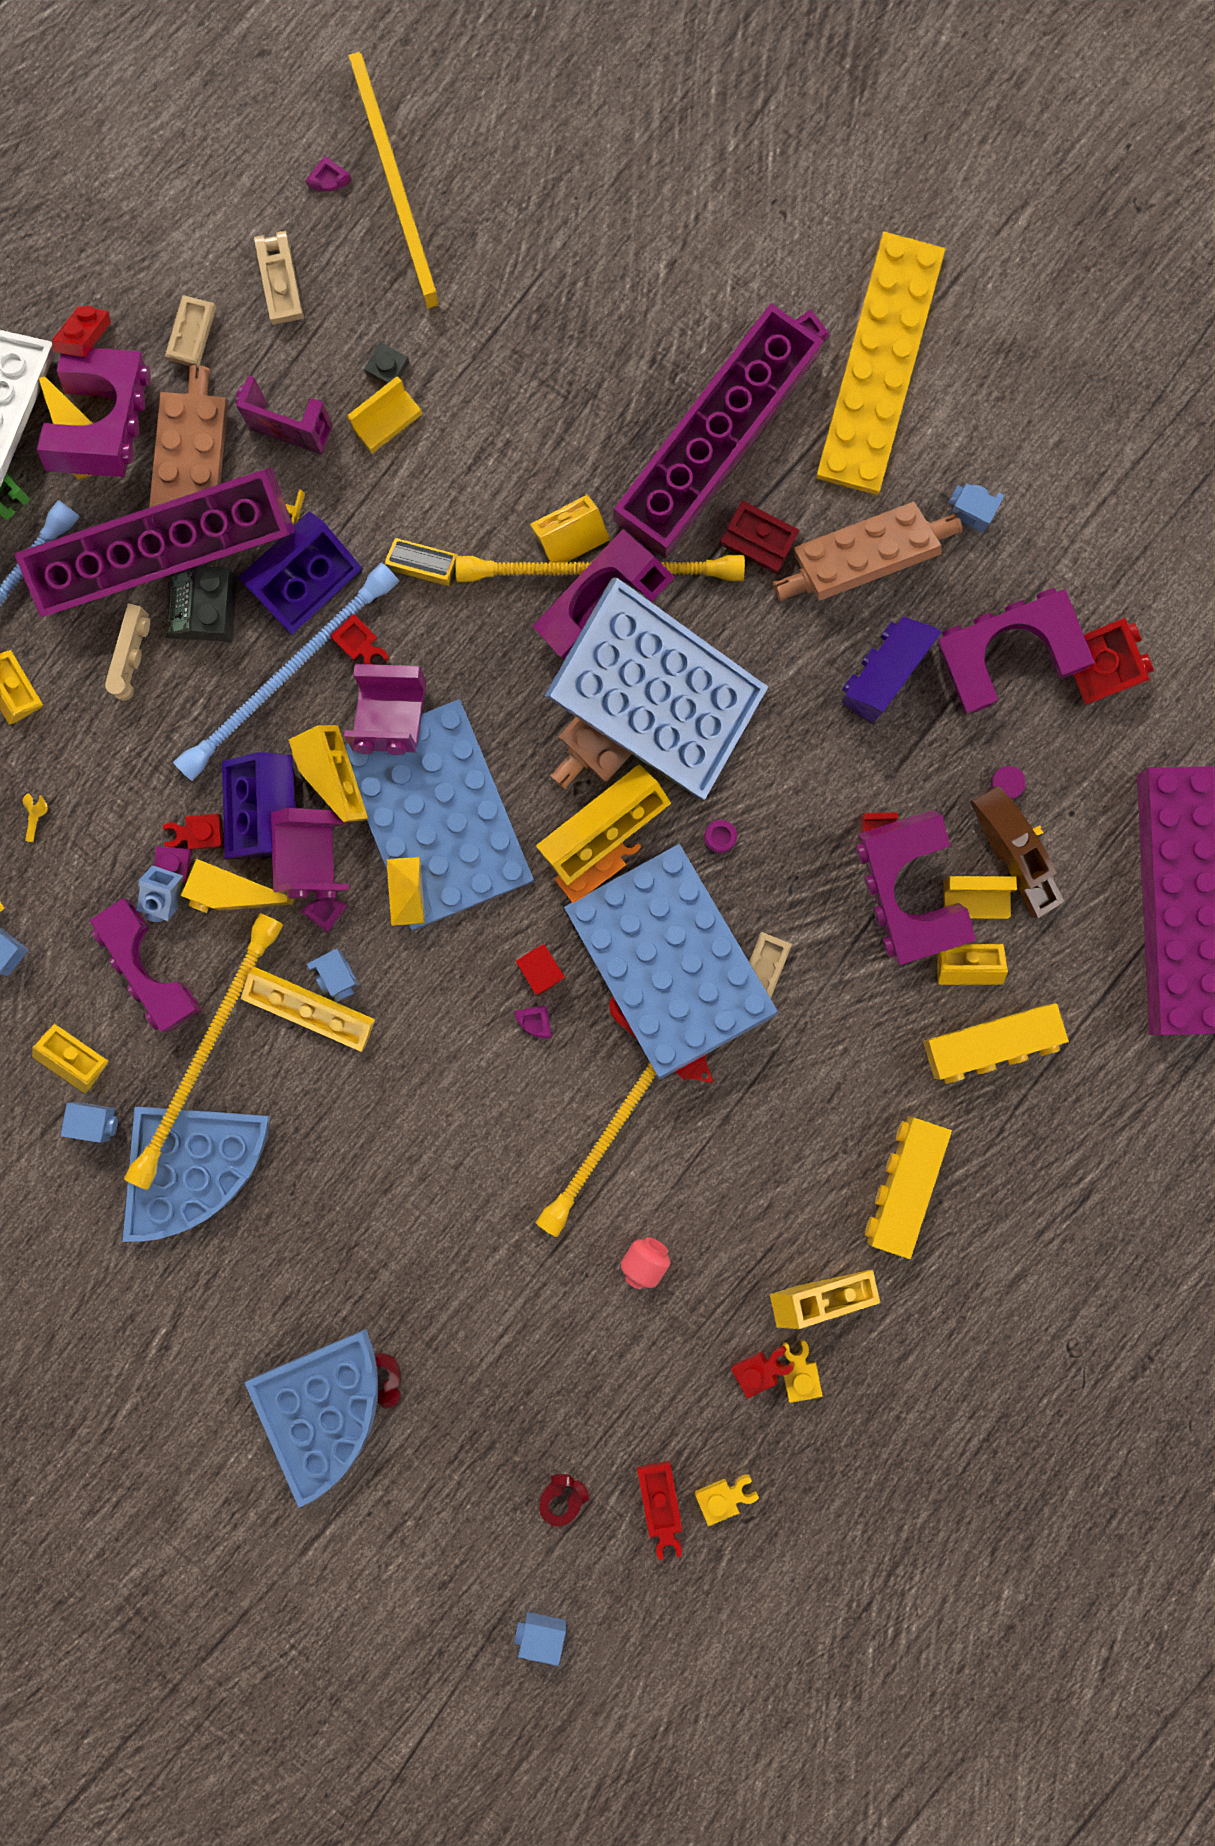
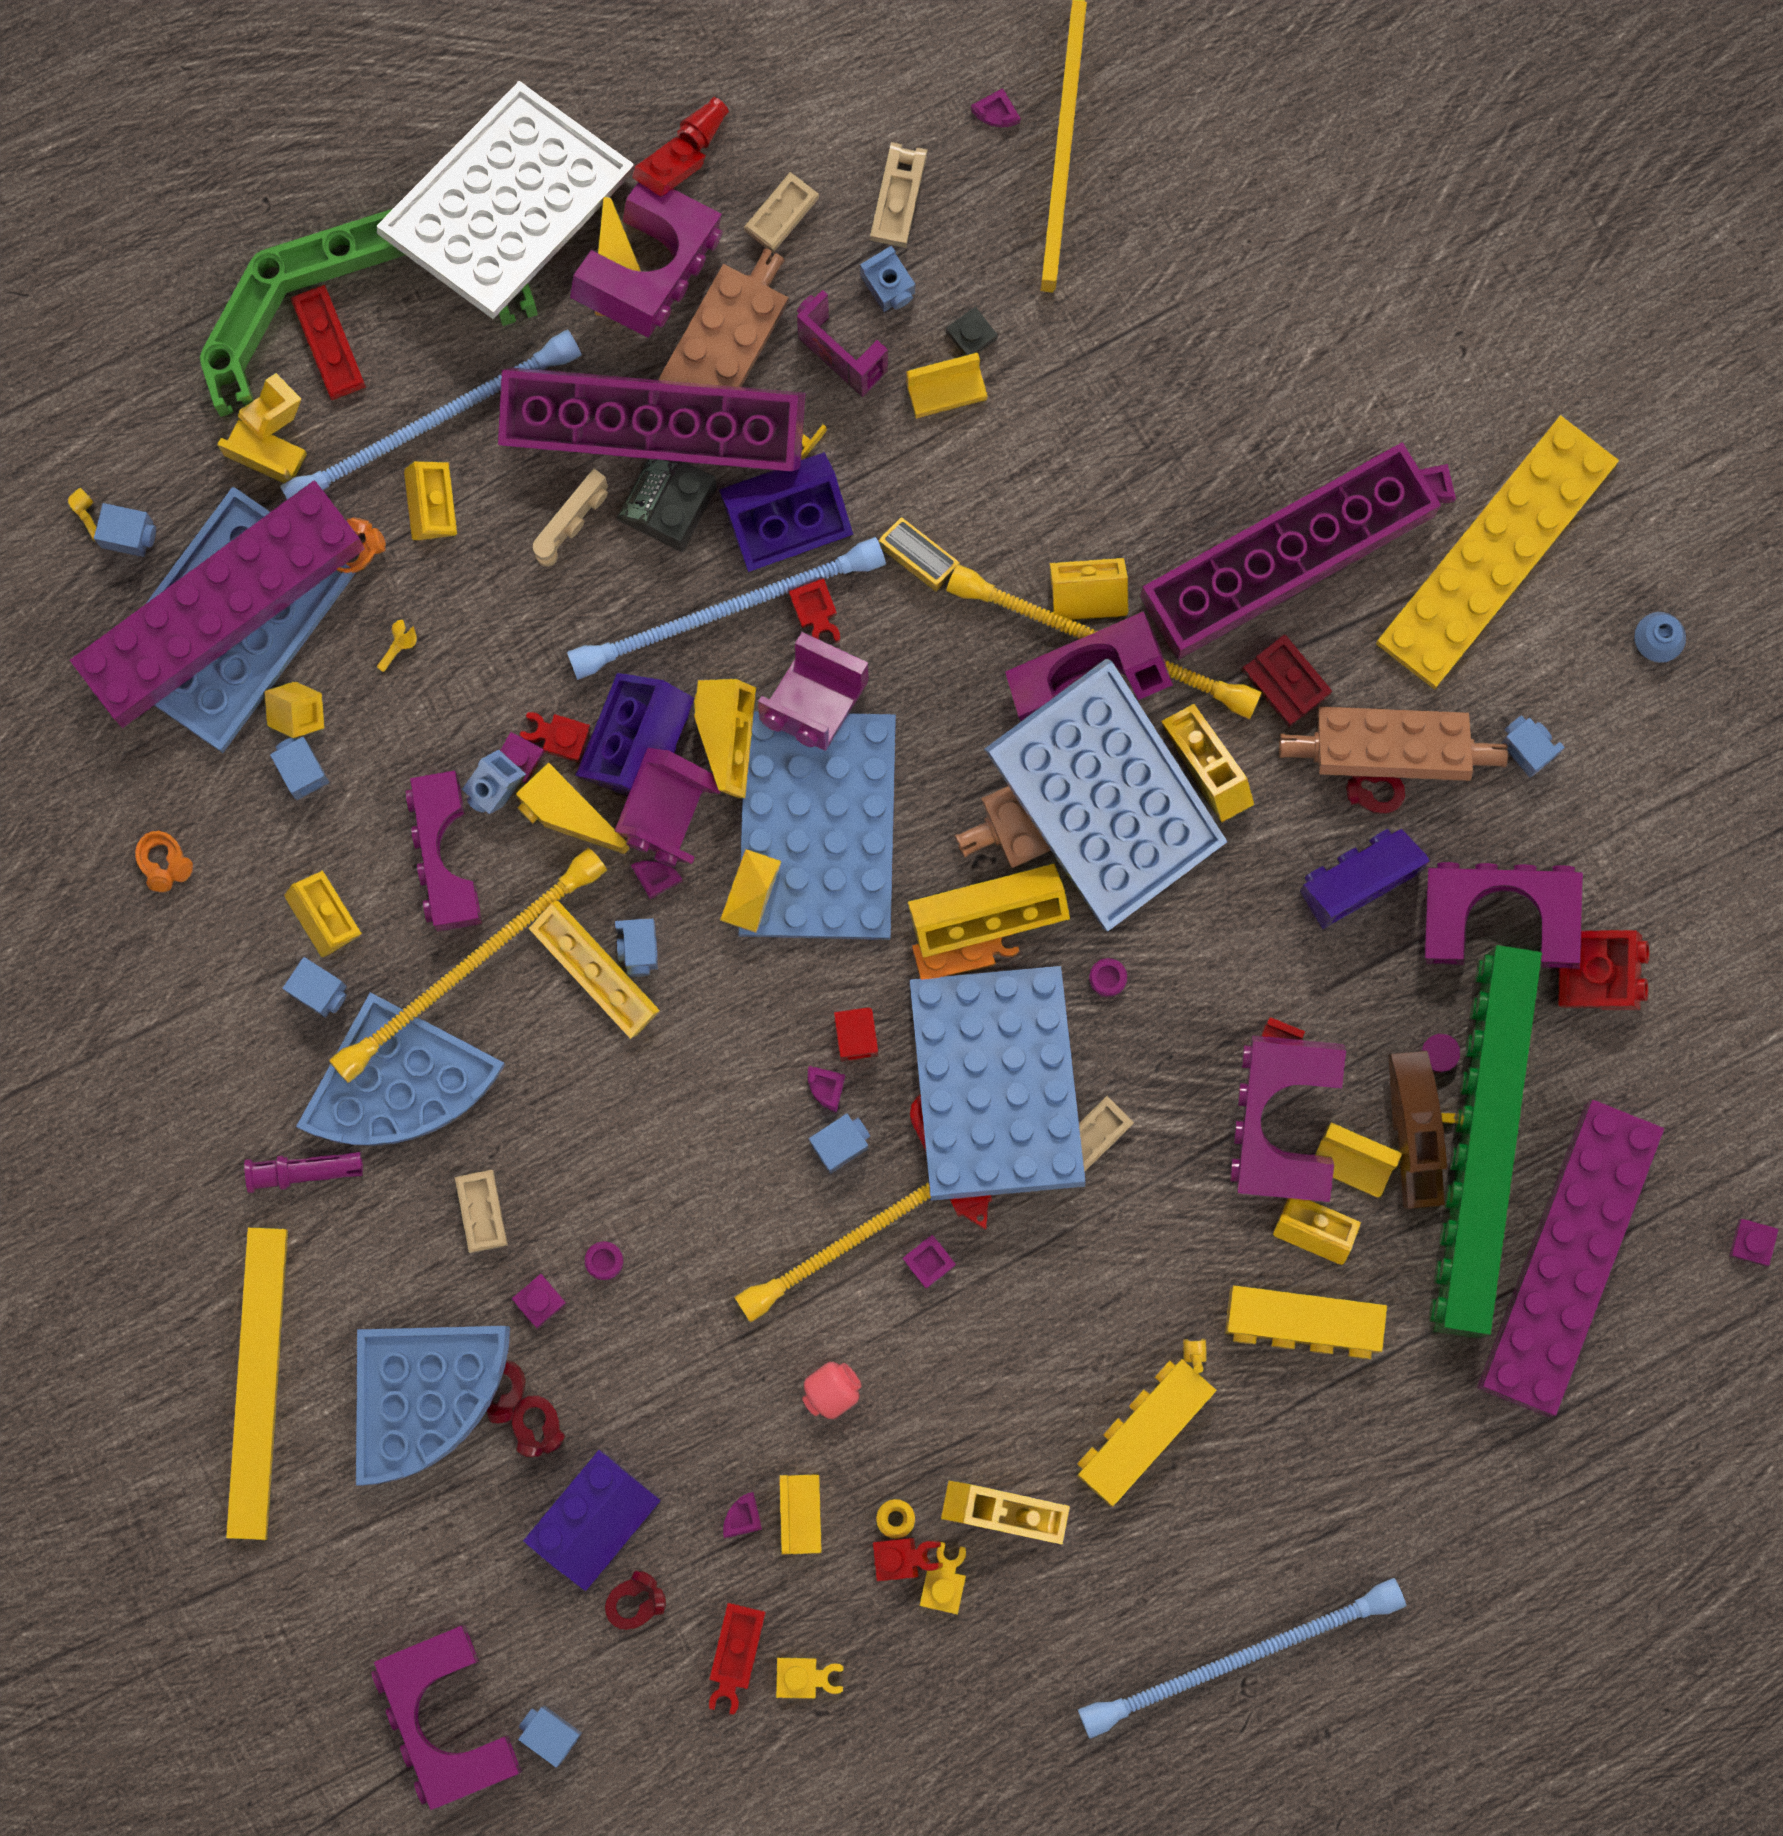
camera: 25 degrees right, 5 degrees down
(95, 286) = (703, 124): none -> red cone
(131, 1280) = (284, 1172): none -> magenta pin
(184, 1460) = (257, 1384): none -> yellow tile
(302, 1242) = (481, 1211): none -> tan plate
(304, 361) = (887, 294): none -> medium blue brick
(380, 1293) = (539, 1301): none -> magenta plate
(418, 1238) = (604, 1260): none -> magenta tile
(424, 1413) = (553, 1435): none -> dark red piece
(467, 1706) = (440, 1773): none -> magenta arch
(499, 1451) = (592, 1520): none -> dark purple slope
(565, 1061) = (840, 1142): none -> medium blue brick
(618, 1393) = (742, 1517): none -> magenta tile
(663, 1372) = (800, 1514): none -> yellow panel
(678, 1126) = (929, 1261): none -> magenta plate
(727, 630) = (1209, 763): none -> yellow slope
(744, 1351) = (908, 1518): none -> yellow plate
(863, 606) = (1365, 798): none -> dark red piece
(920, 1106) = (1195, 1353): none -> yellow hand
(1037, 376) = (1652, 640): none -> medium blue cone
(1079, 838) = (1486, 1143): none -> green brick
(1149, 1236) = (1381, 1599): none -> light blue hose

